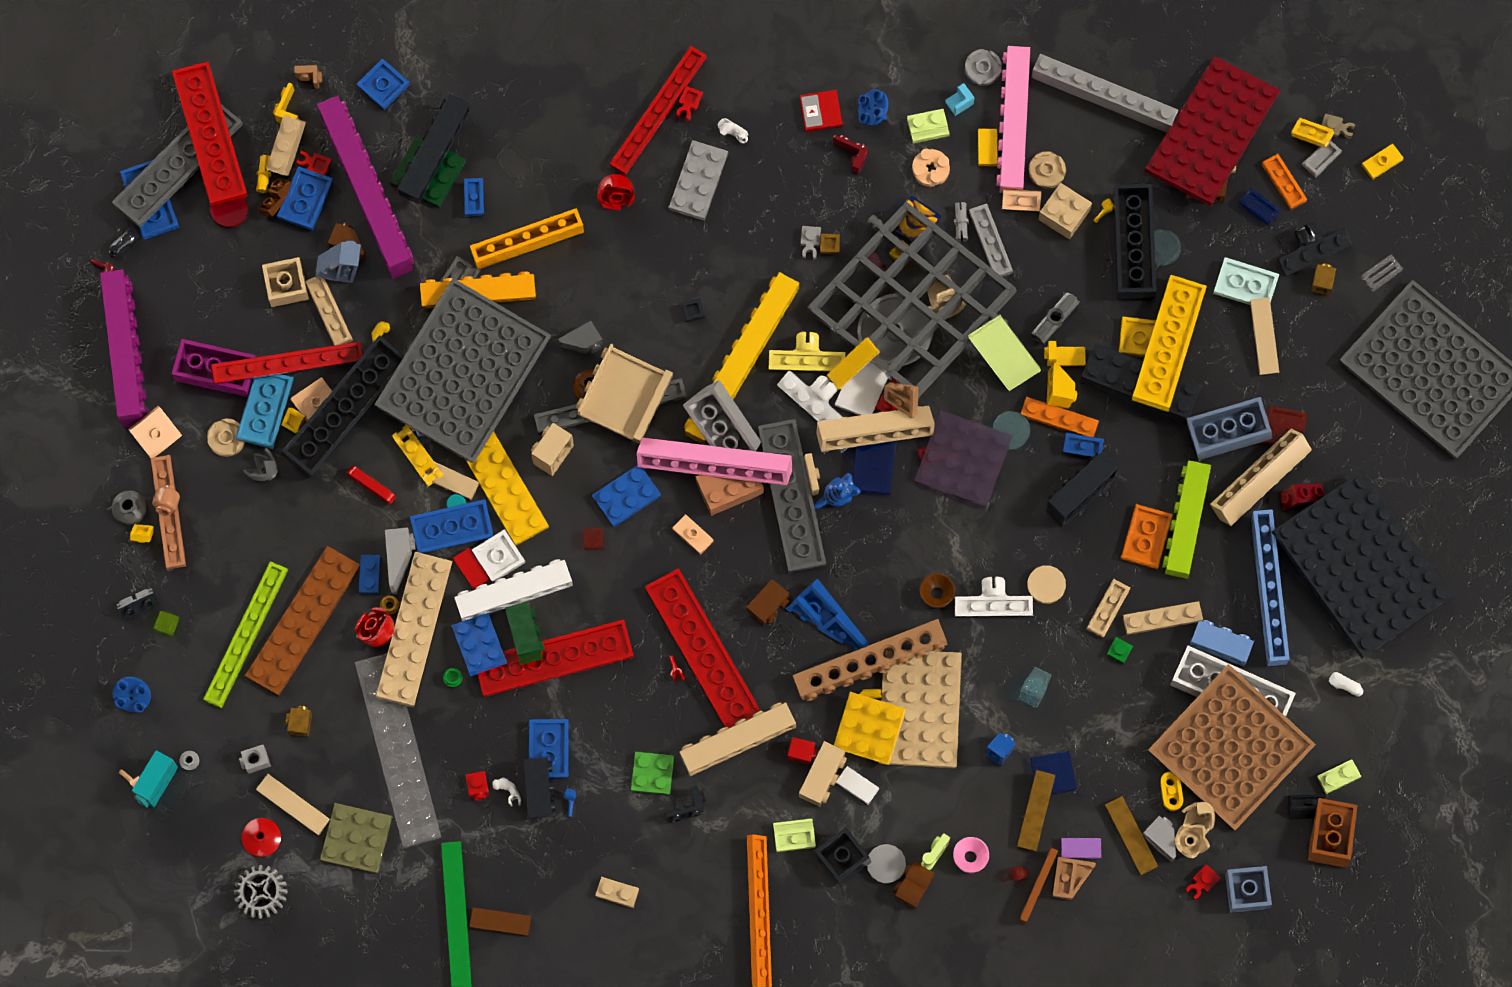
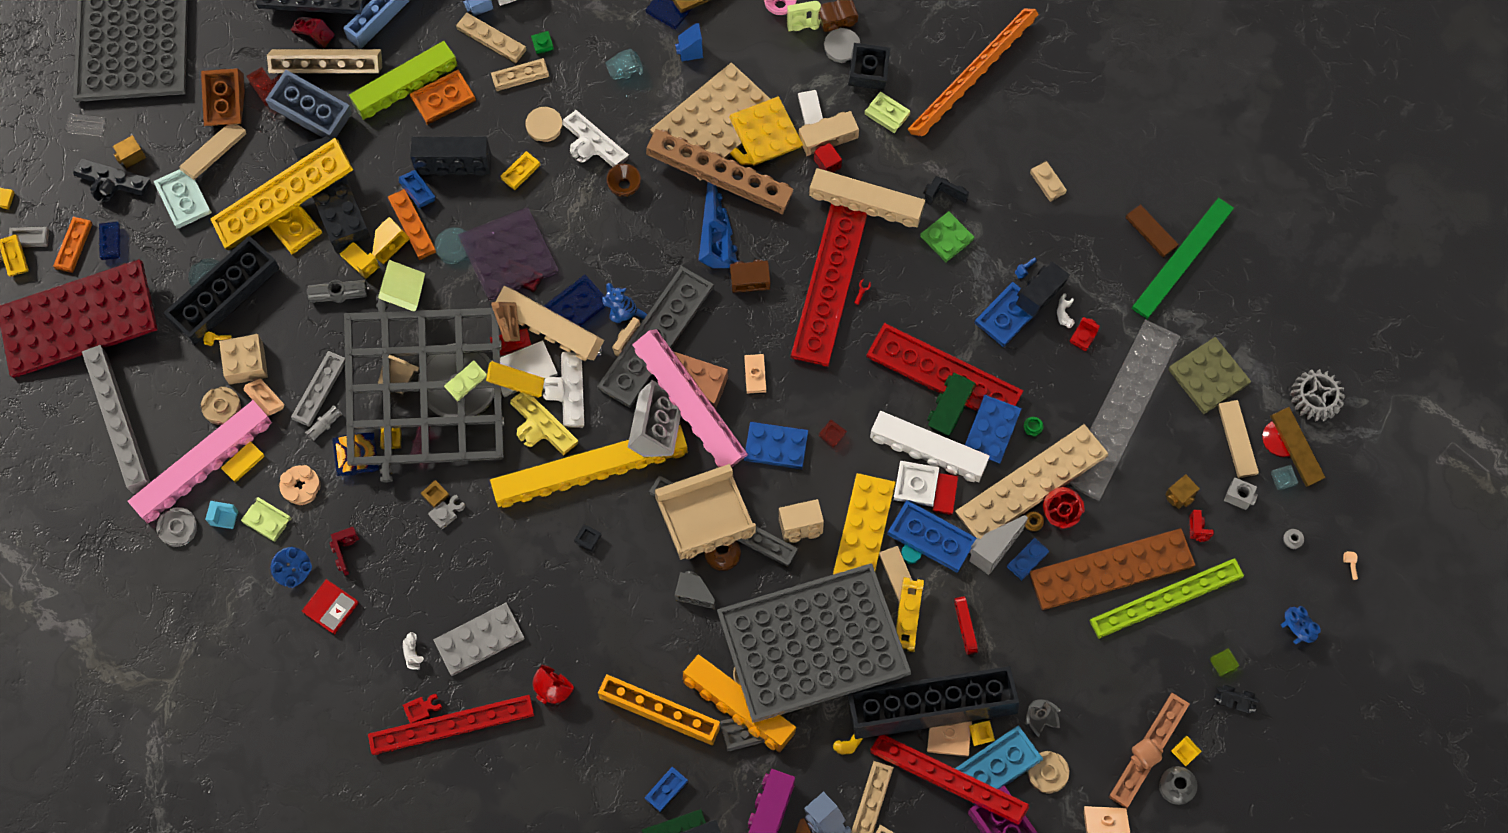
camera: 135 degrees left, 5 degrees down
(154, 779) = (1337, 540): teal brick -> none
(233, 802) = (1284, 477): none -> clear light blue plate
(242, 833) = (1297, 446): none -> pearl gold tile
(269, 708) = (1197, 526): none -> red bracket
(883, 325) = (465, 381): none -> yellowish green plate
(1023, 530) = (520, 170): none -> yellow plate
(1304, 380) = (222, 96): none -> dark orange slope

